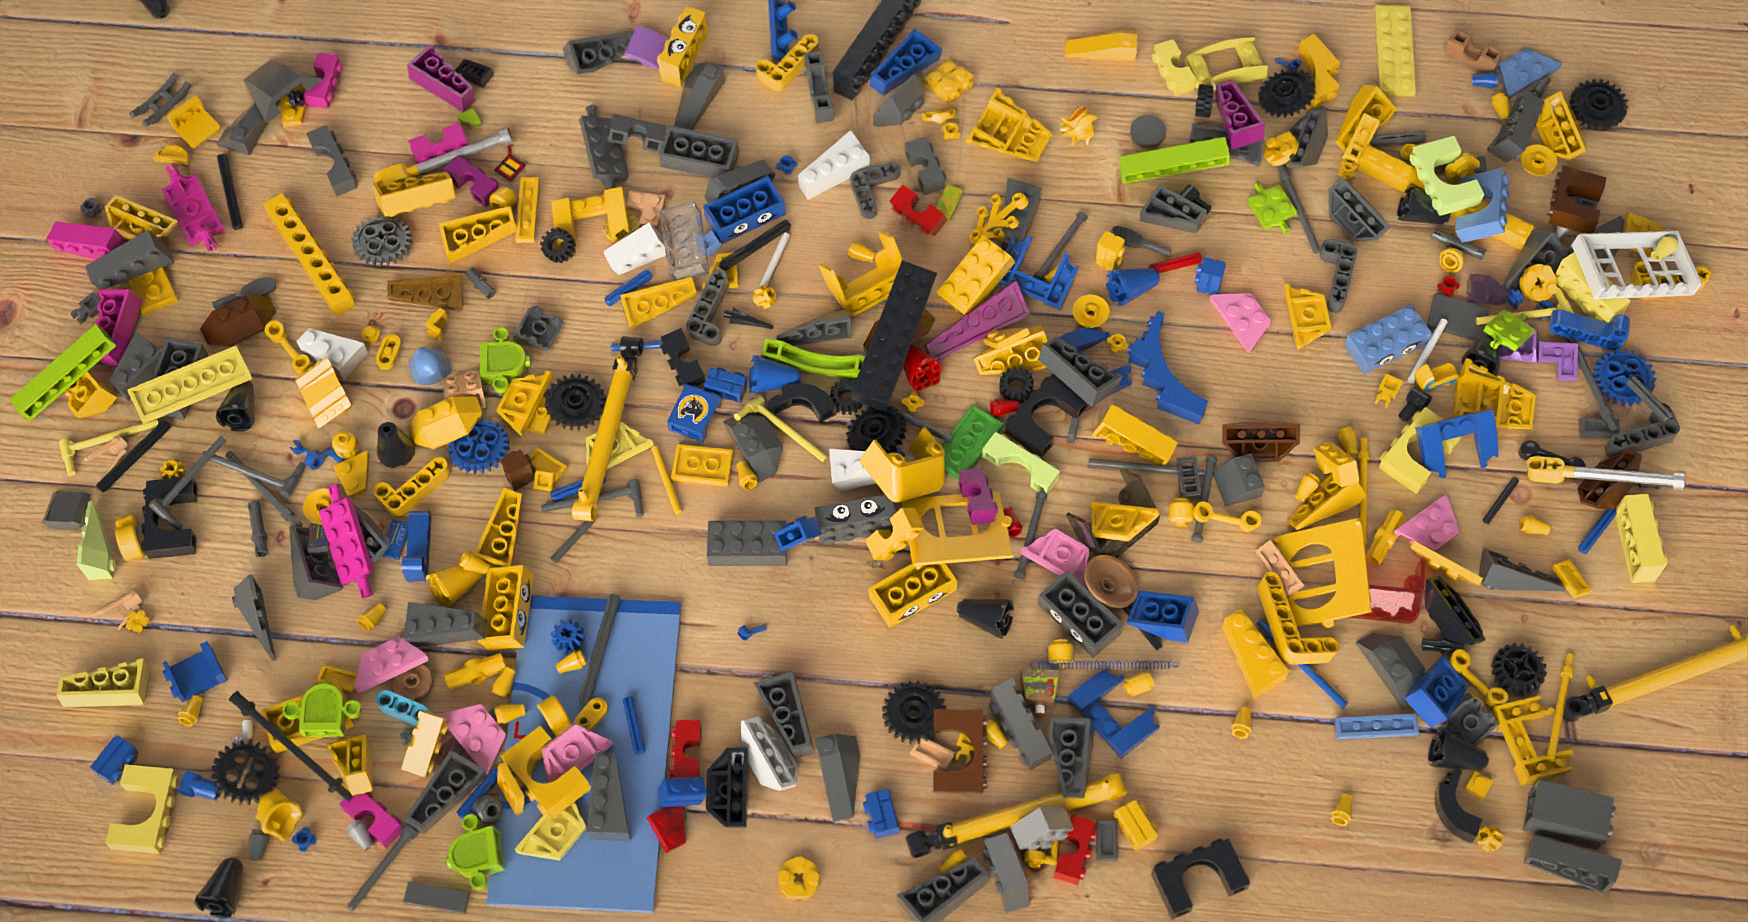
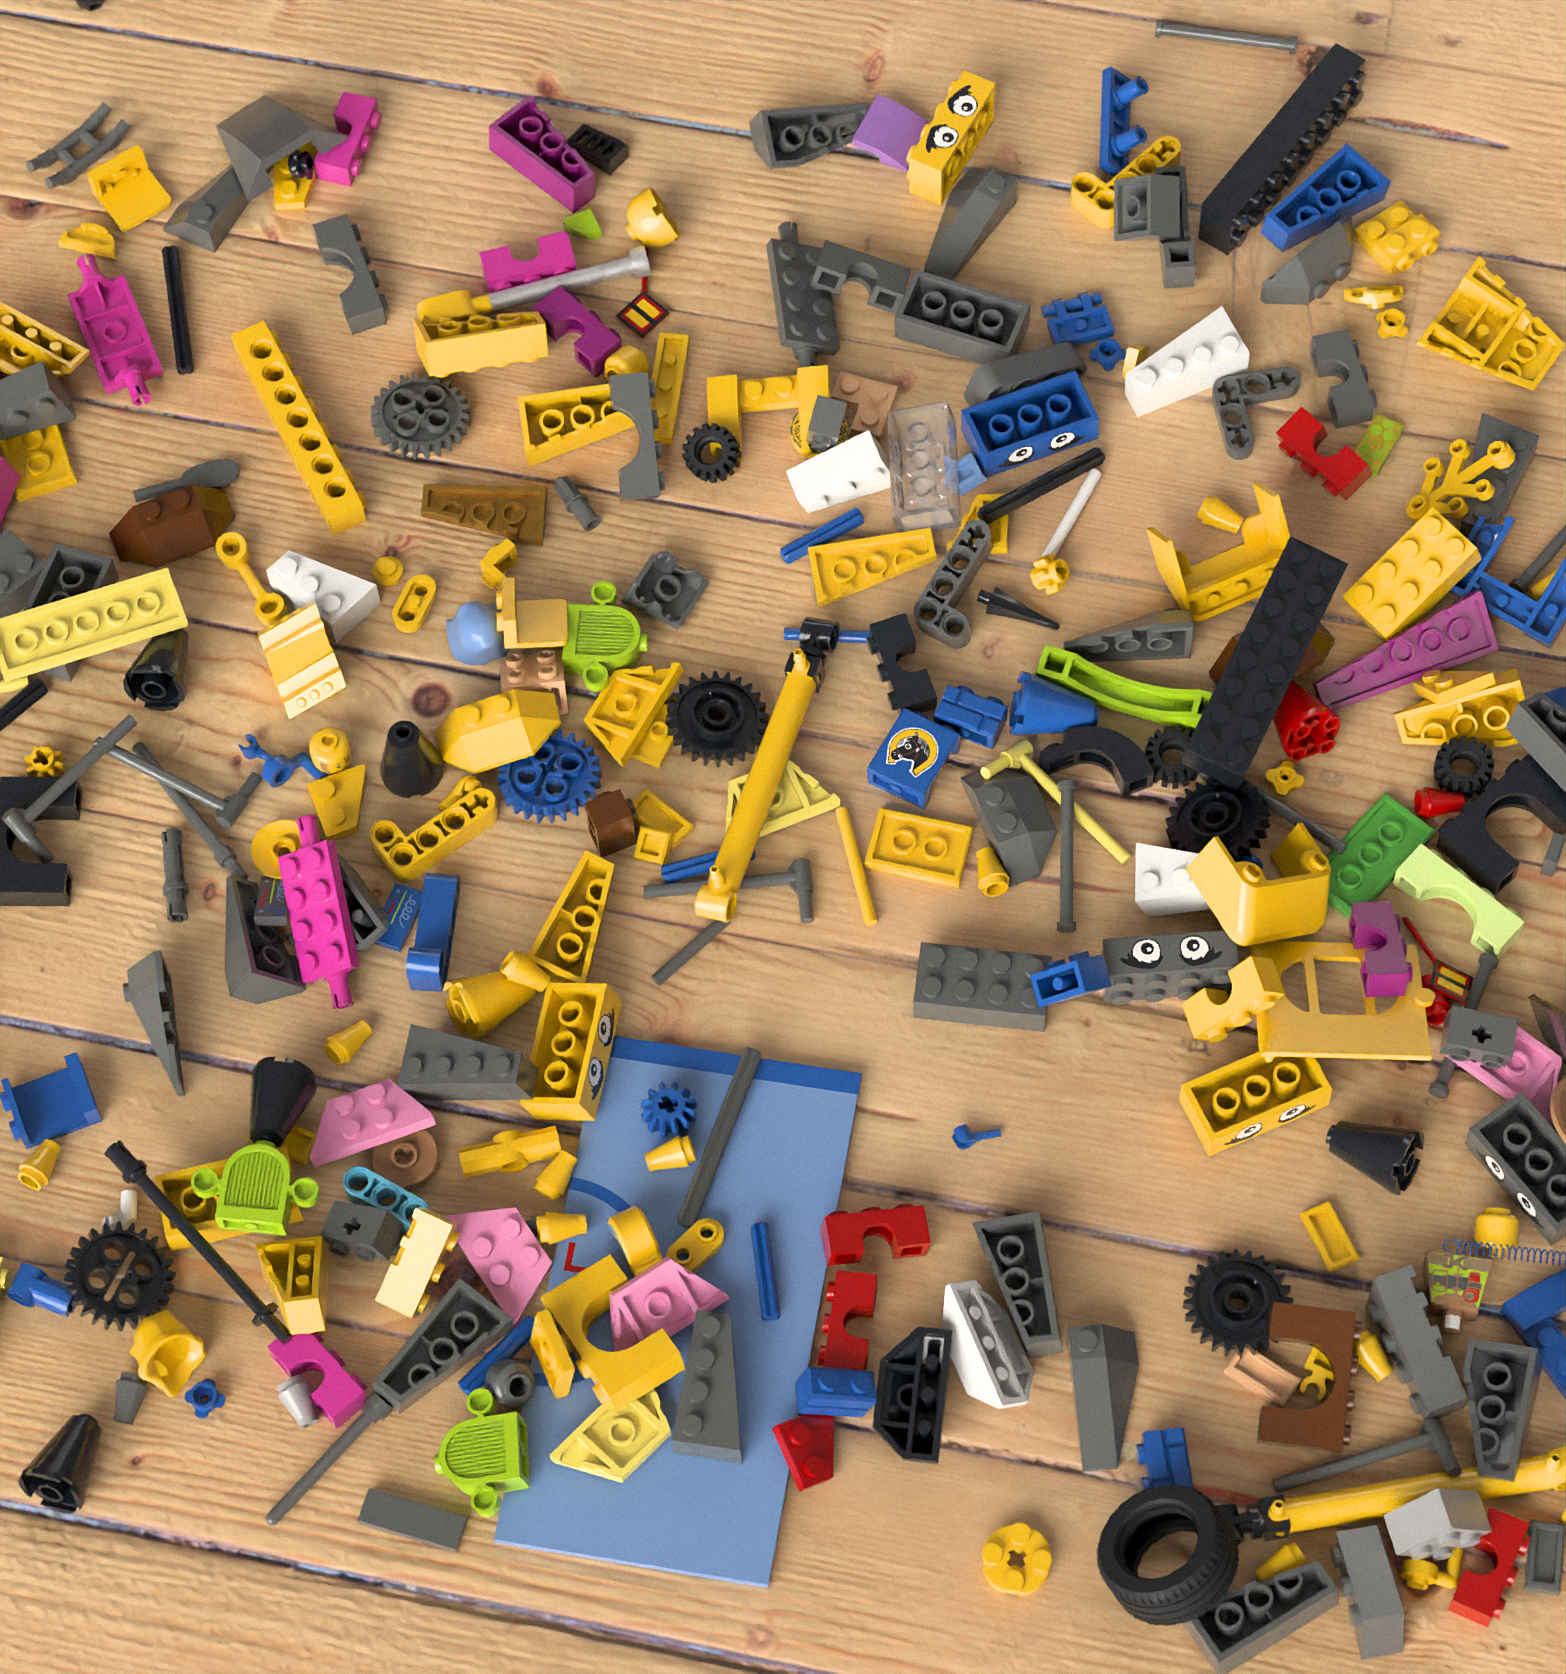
camera: 10 degrees right, 0 degrees up
(332, 655) = (279, 1098): none -> black cone
(389, 728) = (361, 1231): none -> dark grey brick
(428, 457) = (462, 788): none -> yellow arm
(458, 355) = (530, 621): none -> yellow bracket
(507, 217) = (632, 396): none -> dark grey arch
(509, 112) = (650, 220): none -> yellow cylinder
(623, 221) = (826, 423): none -> dark grey brick
(713, 690) = (902, 1227): none -> red arch
(768, 150) = (1078, 327): none -> blue plate
(793, 501) = (1067, 790): none -> dark grey bar
(801, 77) = (1147, 208): none -> dark grey slope
(802, 164) = (1135, 355): none -> yellow tile
(900, 883) = (1189, 1589): none -> black tyre
(964, 667) = (1329, 1236): none -> yellow tile
(1016, 508) = (1444, 977): none -> piece
(1034, 777) = (1431, 1436): none -> dark grey bar
(1048, 537) = (1494, 1032): none -> dark grey brick

